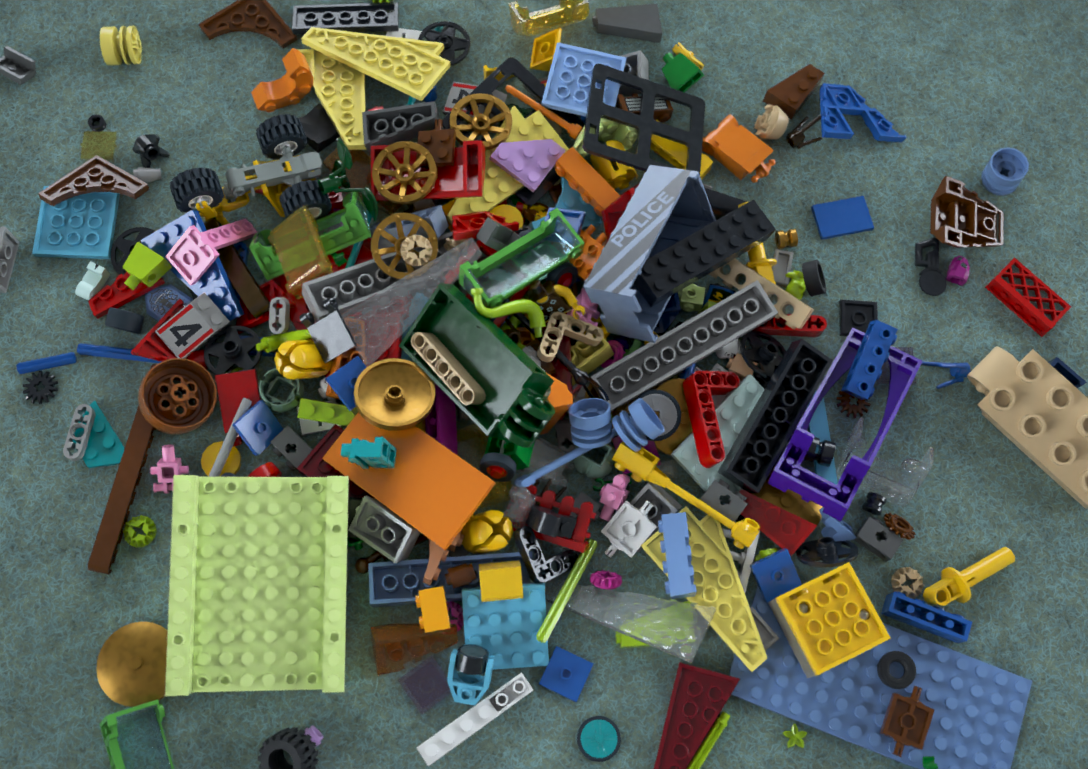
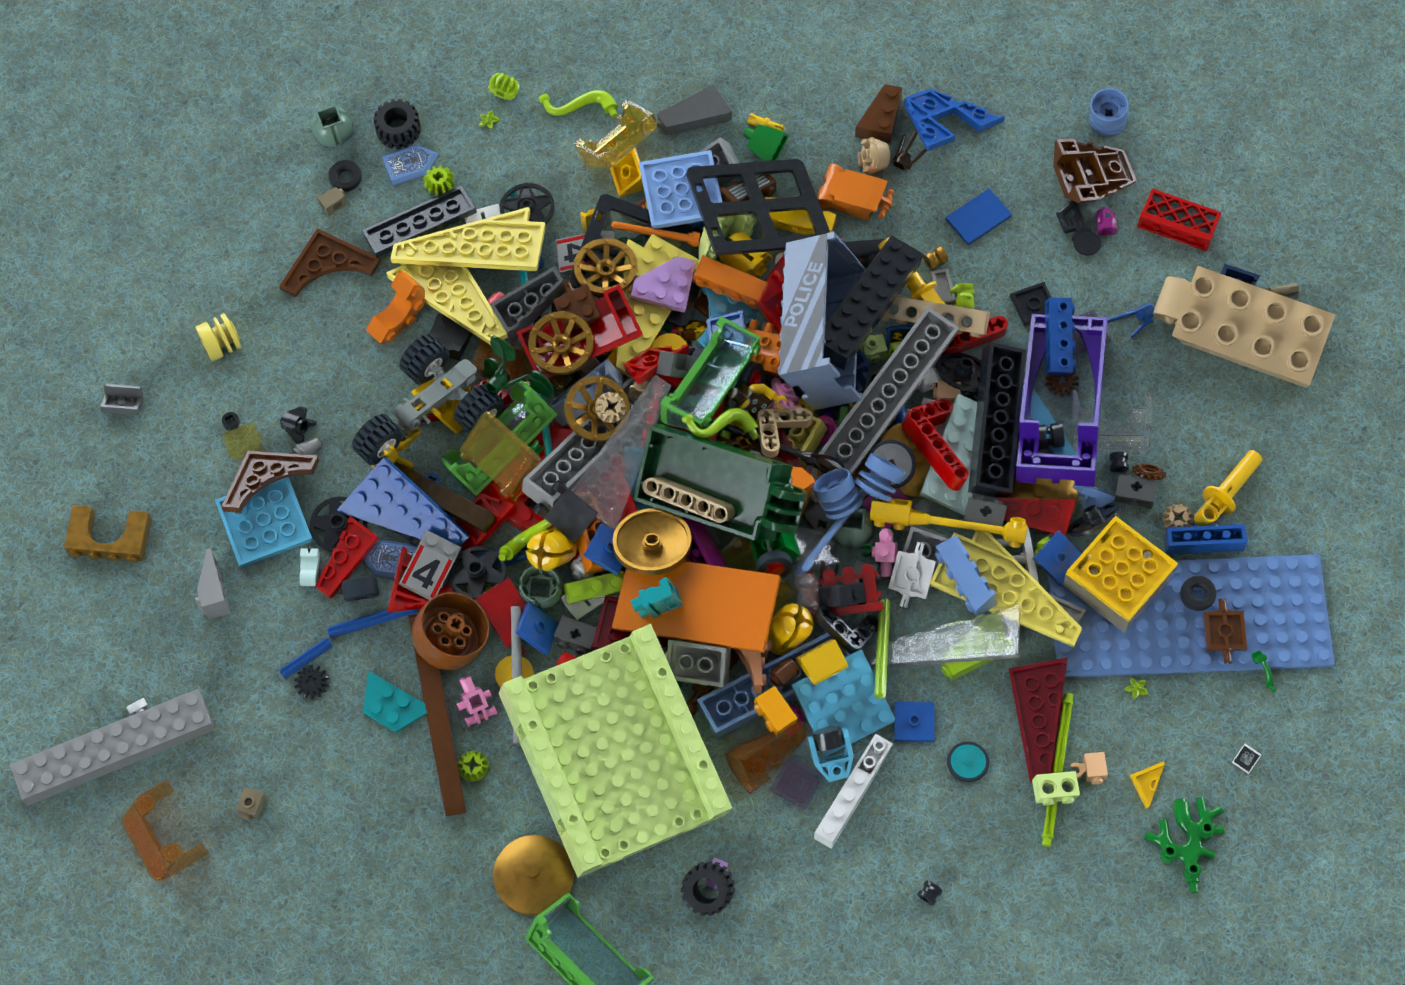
camera: 15 degrees left, 5 degrees down
(89, 420) = (365, 691): light grey beam -> none
(144, 266) = (358, 530): lime torso -> none
(197, 250) = (406, 491): bright pink bracket -> none
(279, 315) = (502, 522): light grey beam -> none
(606, 579) = (912, 626): dark pink gear -> none
(814, 278) = (977, 283): black tyre -> none

